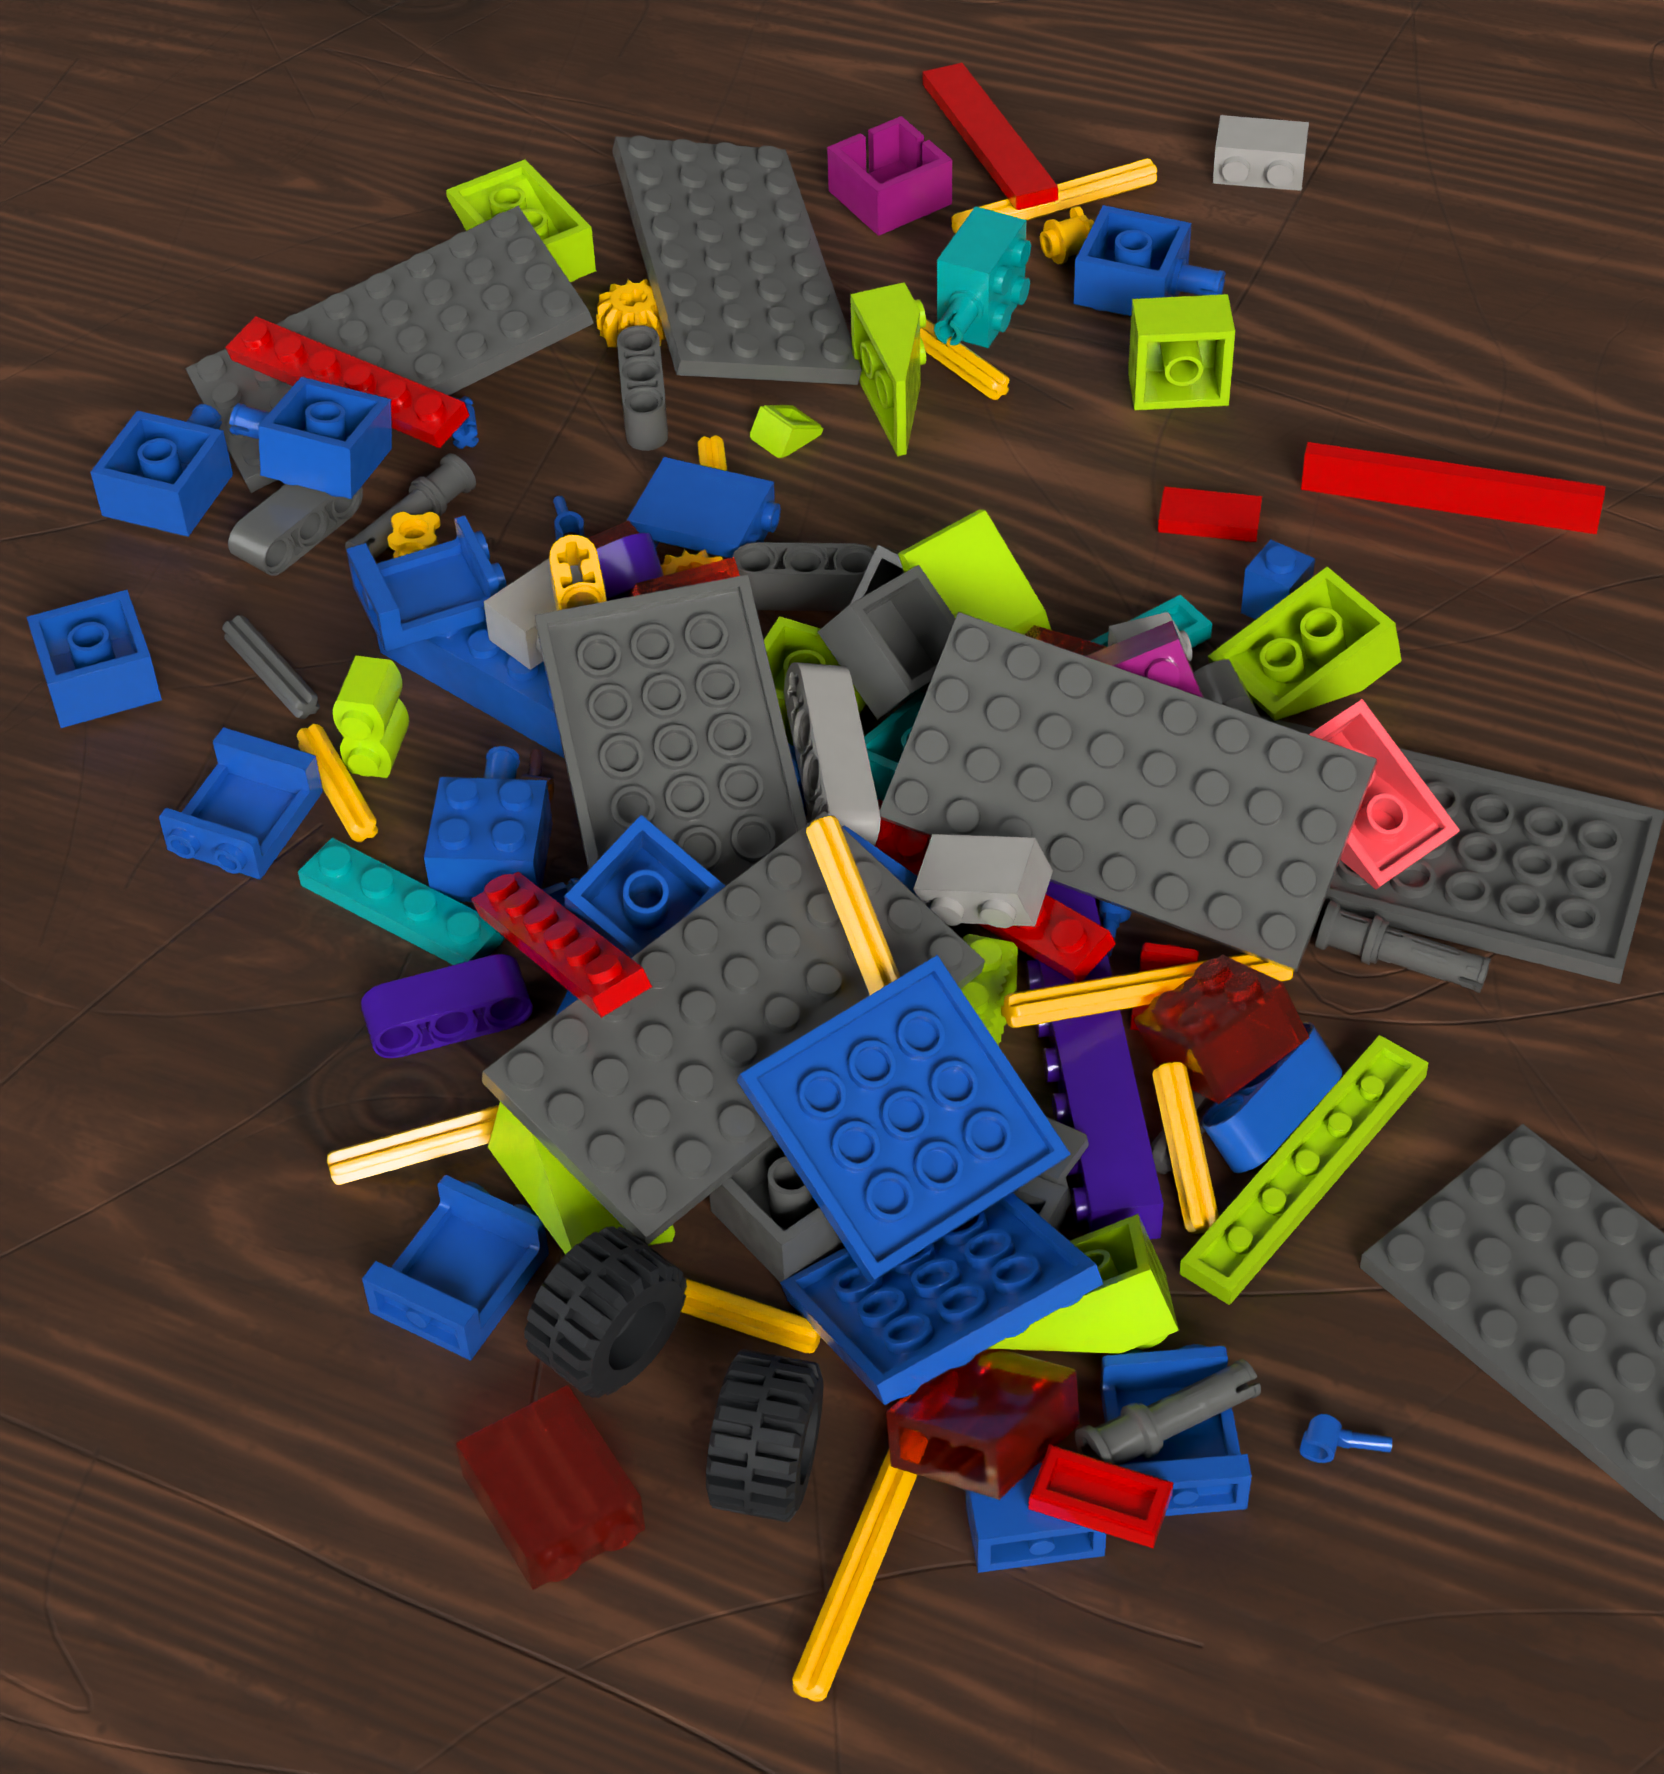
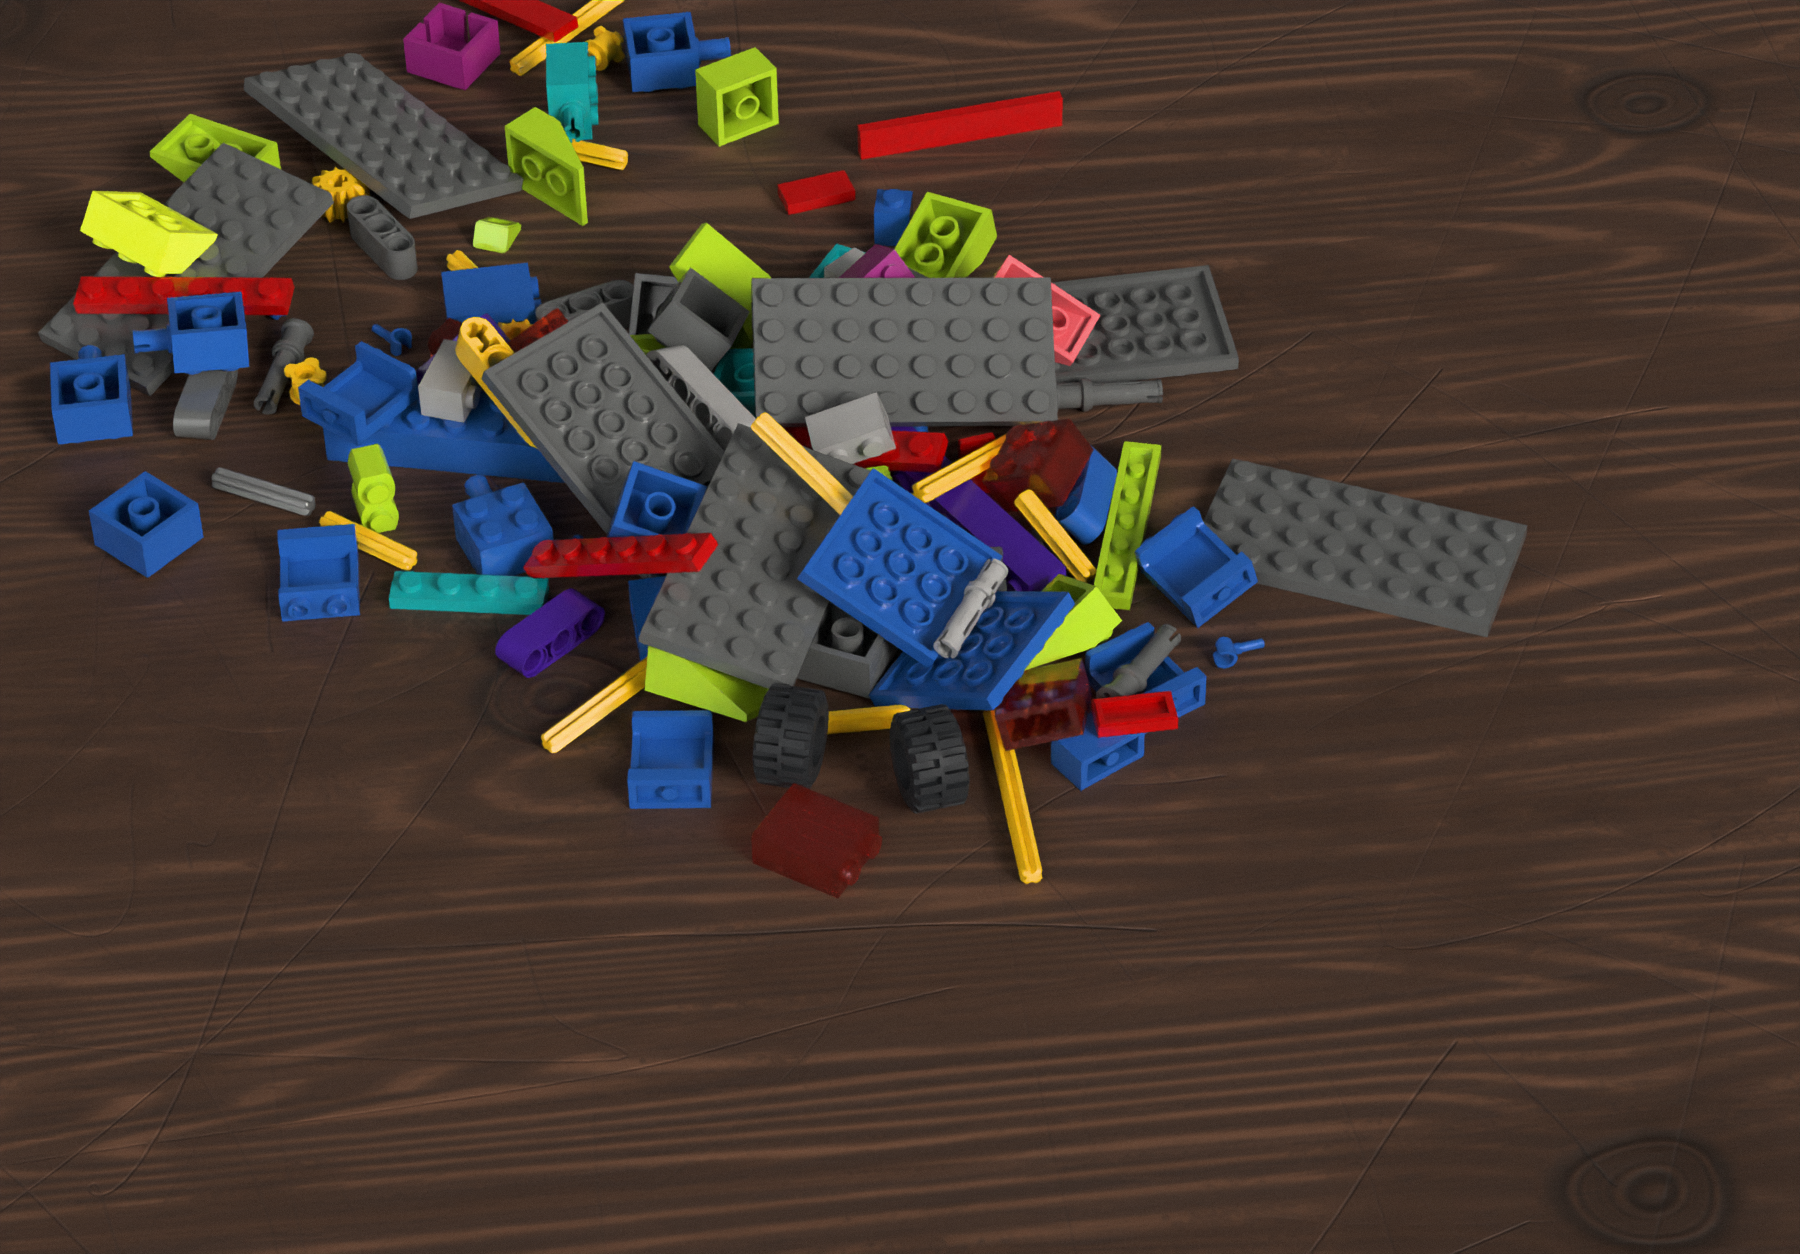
camera: 30 degrees left, 5 degrees down
(353, 285) = (145, 231): none -> neon yellow slope
(986, 1208) = (978, 597): none -> light grey pin
(1353, 1282) = (1195, 567): none -> blue panel

